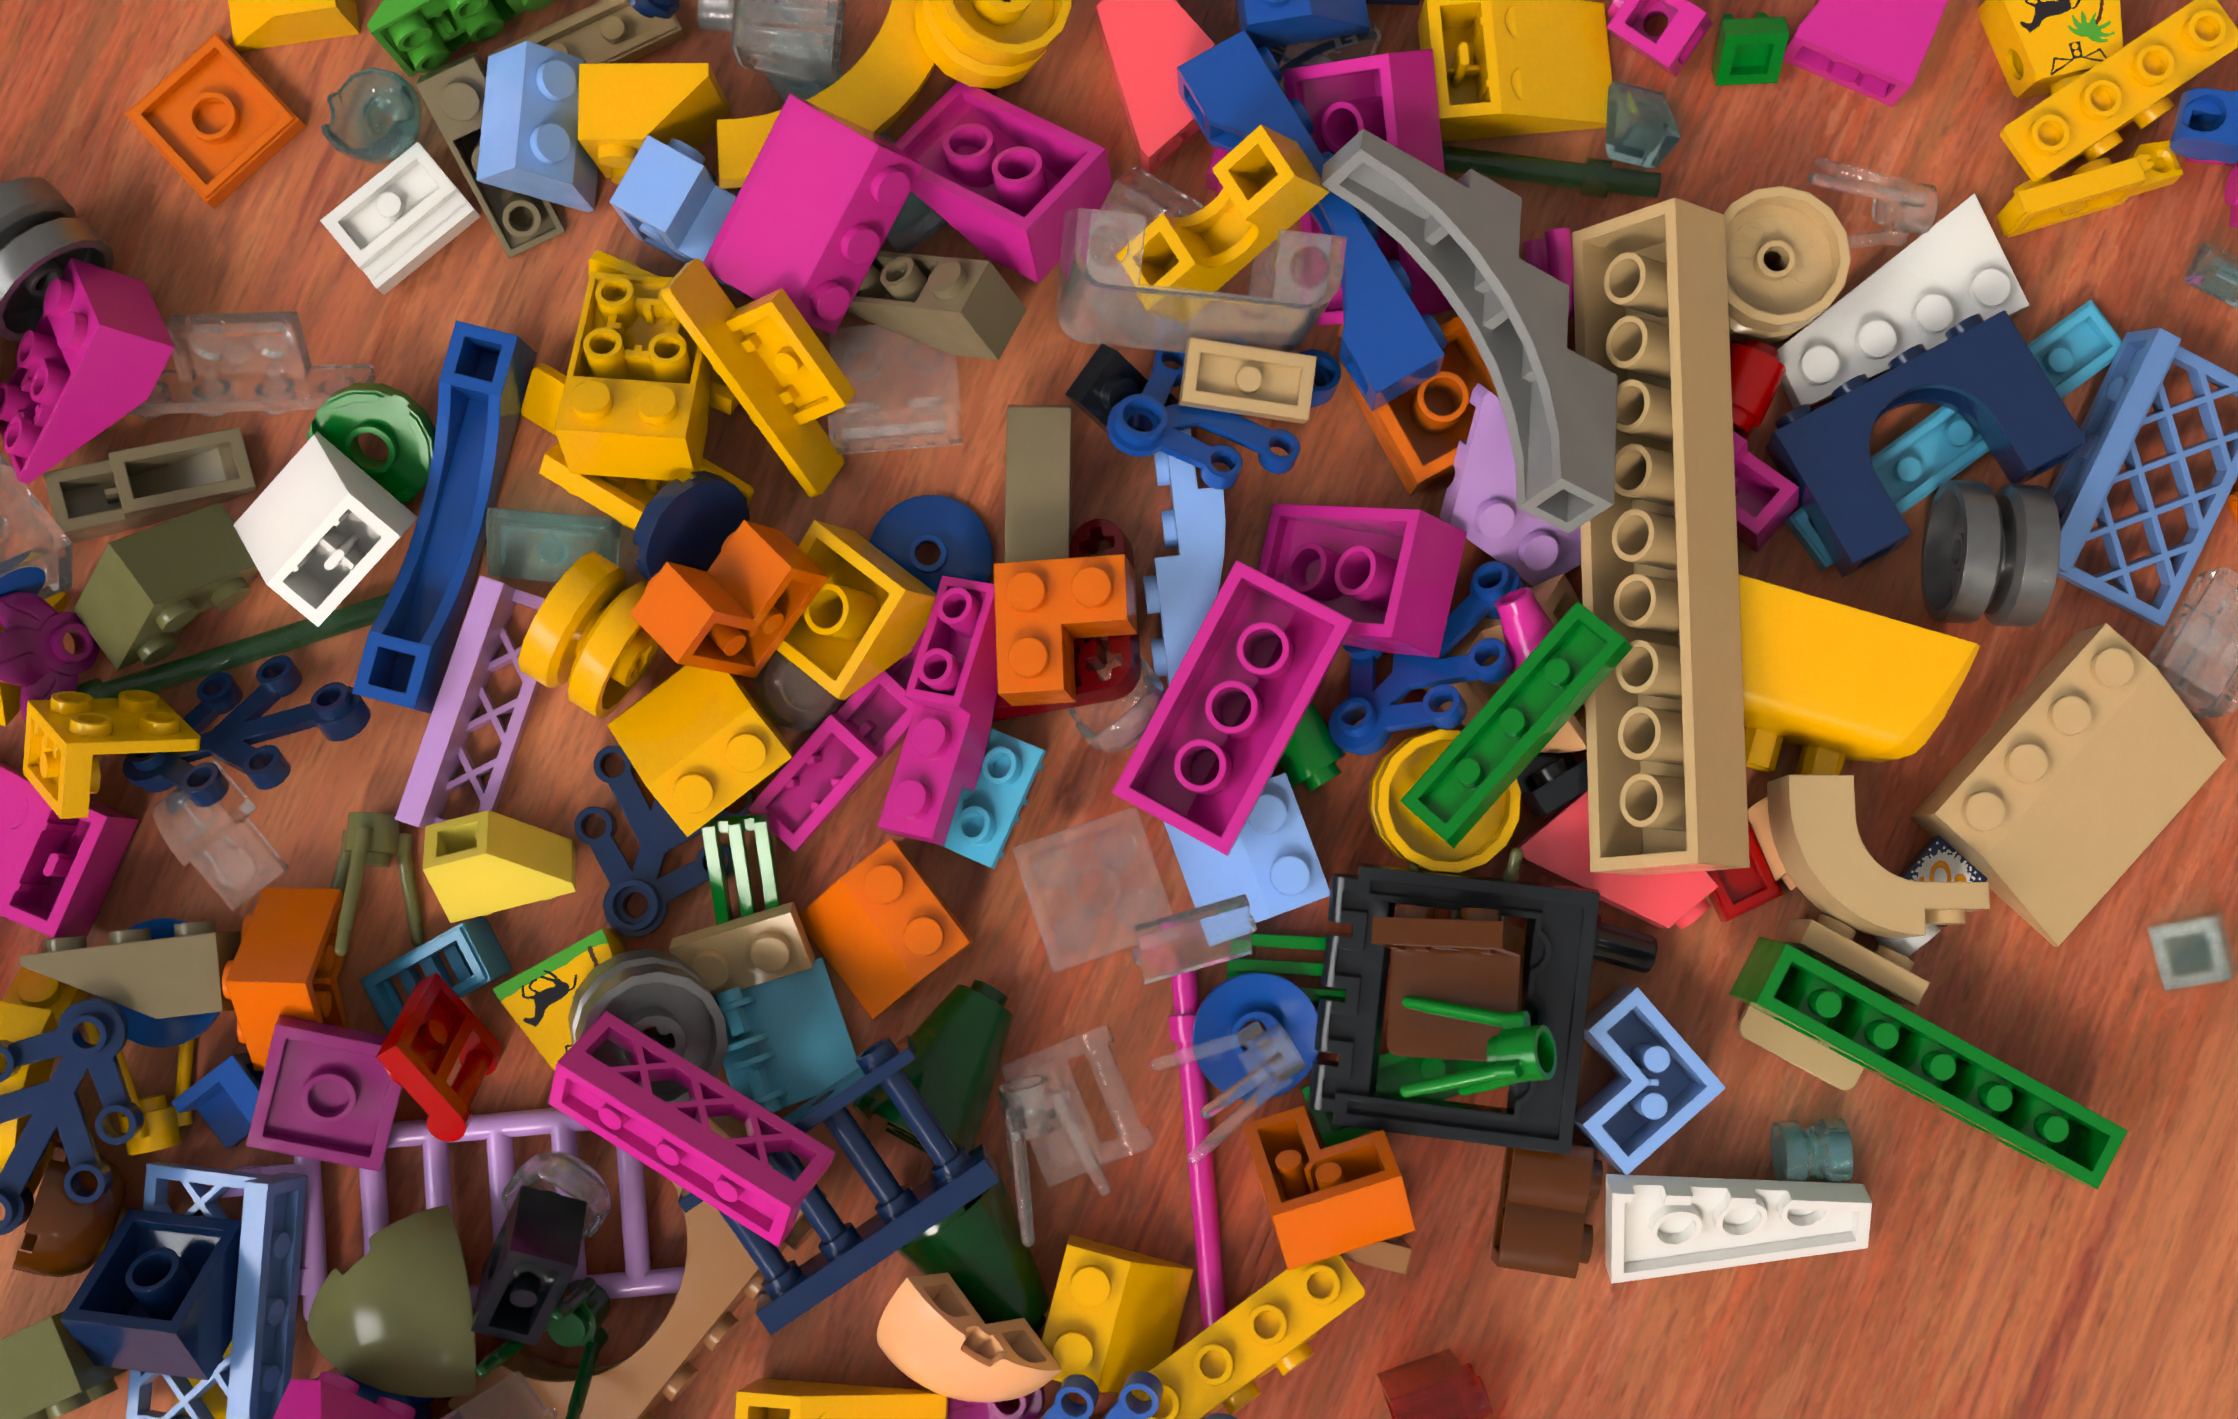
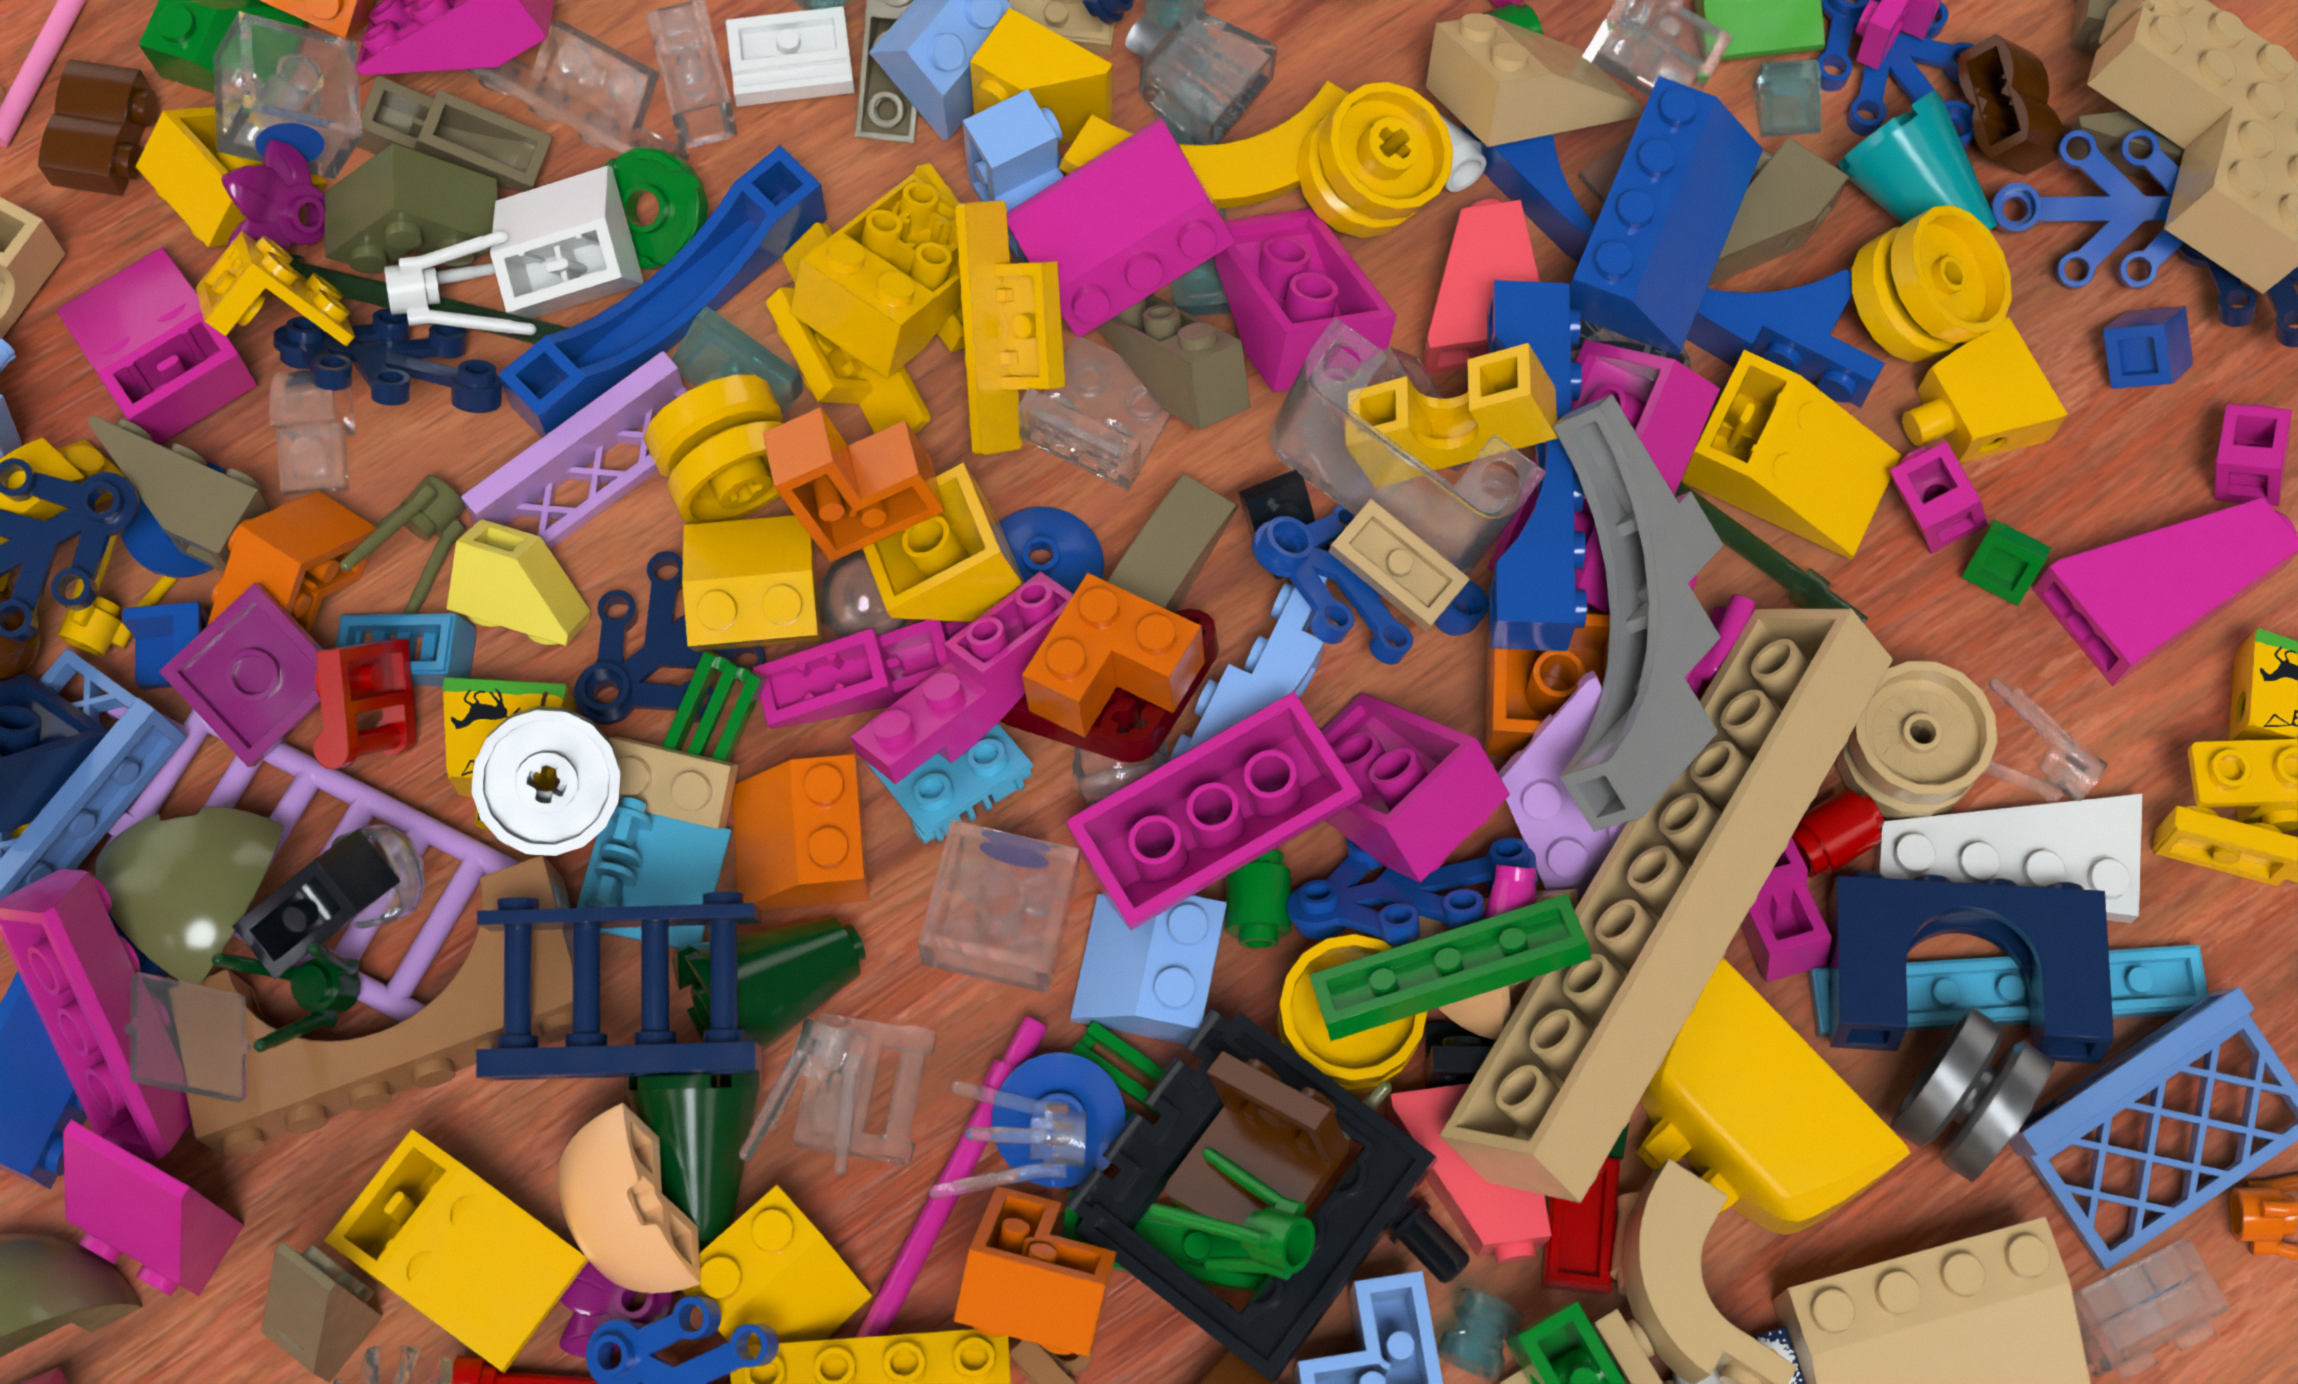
camera: 25 degrees right, 15 degrees down
(218, 650) = (415, 284): none -> white plant
(324, 291) = (692, 74): none -> clear brick
(675, 1143) = (513, 852): dark pink fence -> none
(688, 523) = (860, 398): dark blue tile -> none
(1194, 939) = (1056, 992): clear piece -> none
(1639, 126) = (1871, 569): clear light blue slope -> none
(1702, 1002) = (1477, 1338): none -> clear light blue wheel

